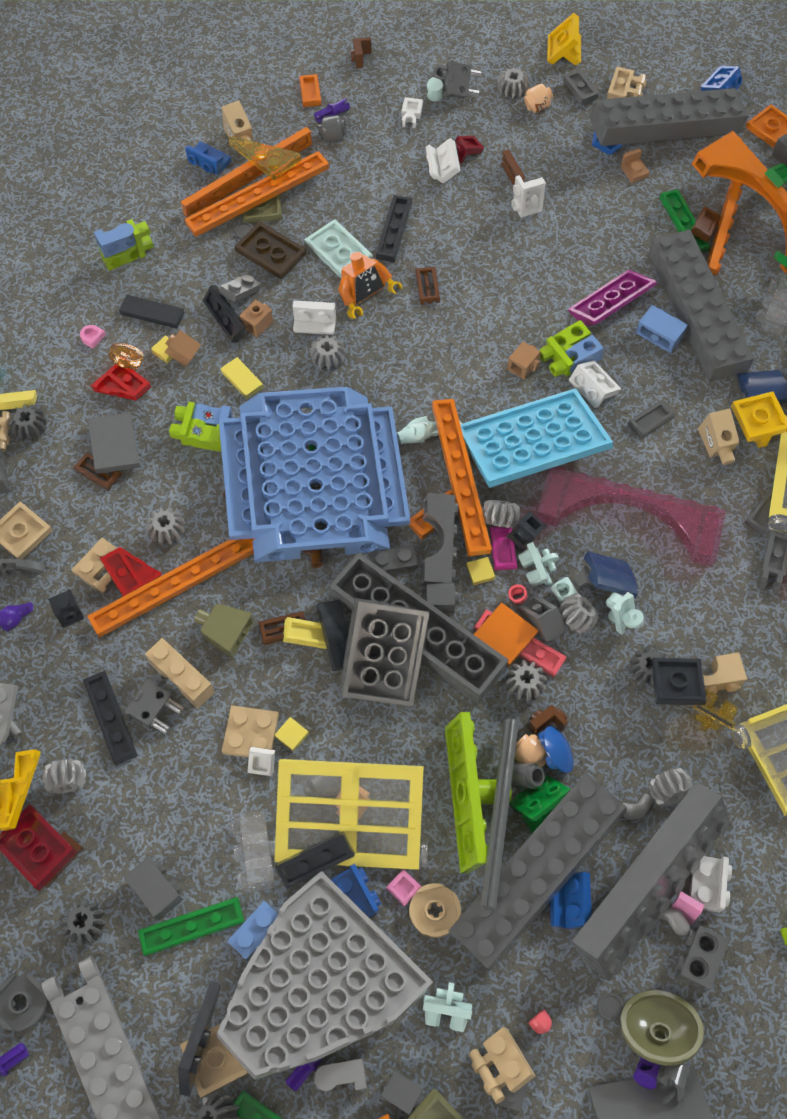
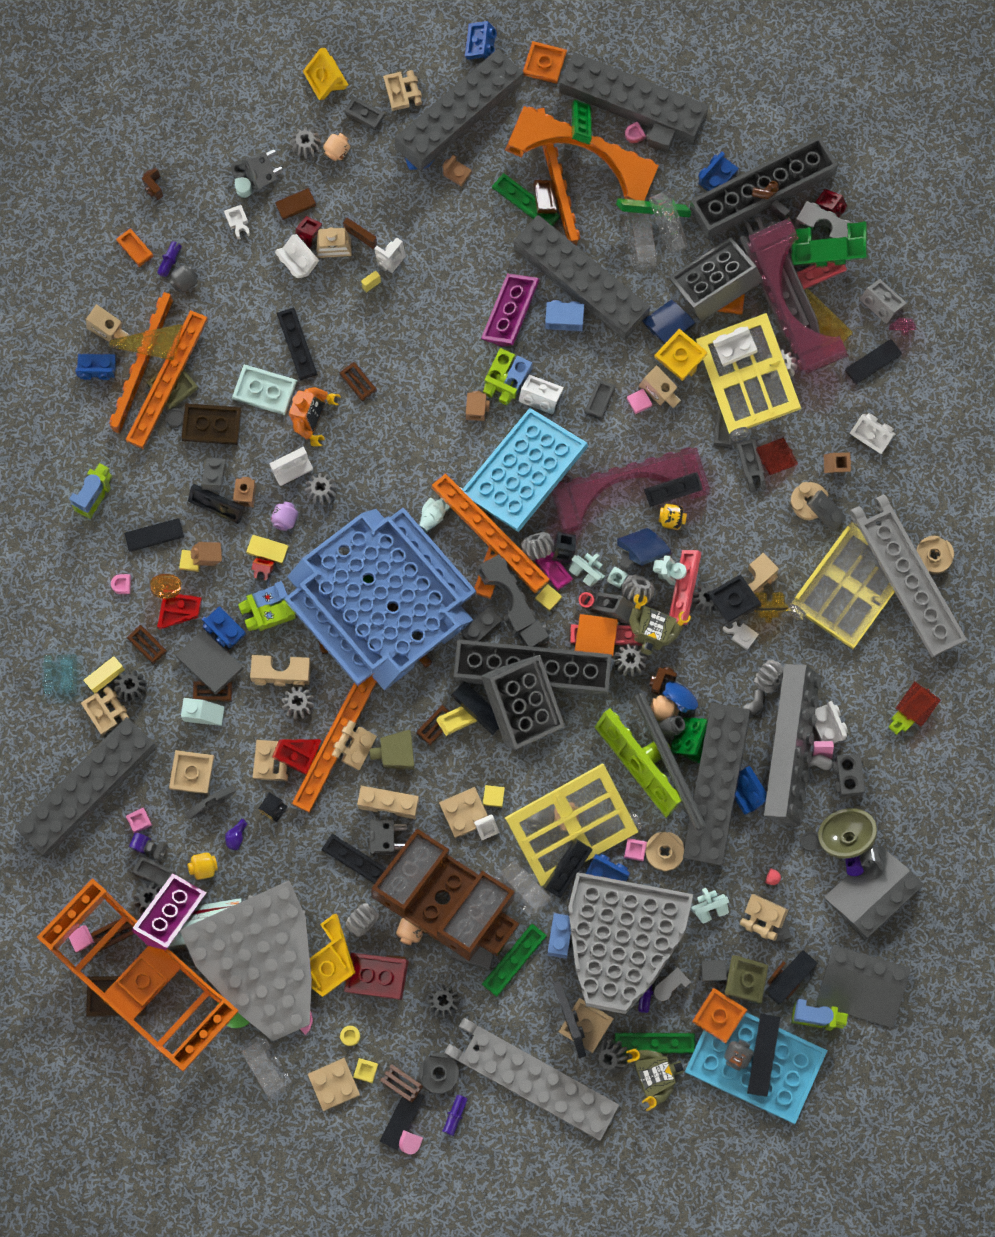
camera: 30 degrees left, 10 degrees up
(71, 481) = (202, 712): none -> light aqua slope
(74, 412) = (157, 655): none -> reddish brown tile
(106, 820) = (408, 932): none -> light nougat head
(150, 421) = (224, 627): none -> blue bracket
(171, 847) = (475, 906): none -> reddish brown piece
(184, 498) = (297, 673): none -> tan arch
(187, 605) = (358, 748): none -> tan plate
(225, 388) = (264, 566): none -> tile
(277, 357) = (284, 516): none -> lavender head
(471, 124) = (295, 204): none -> reddish brown tile
(483, 163) = (333, 243): none -> tan torso
(496, 211) = (371, 281): none -> light yellow tile
(571, 660) = (653, 627): none -> olive torso
(629, 642) = (685, 587): none -> coral tile
(659, 564) = (672, 516): none -> yellow head
(665, 727) = (742, 636): none -> white plate
(677, 536) = (673, 489): none -> black tile
(690, 441) = (639, 401): none -> bright pink tile

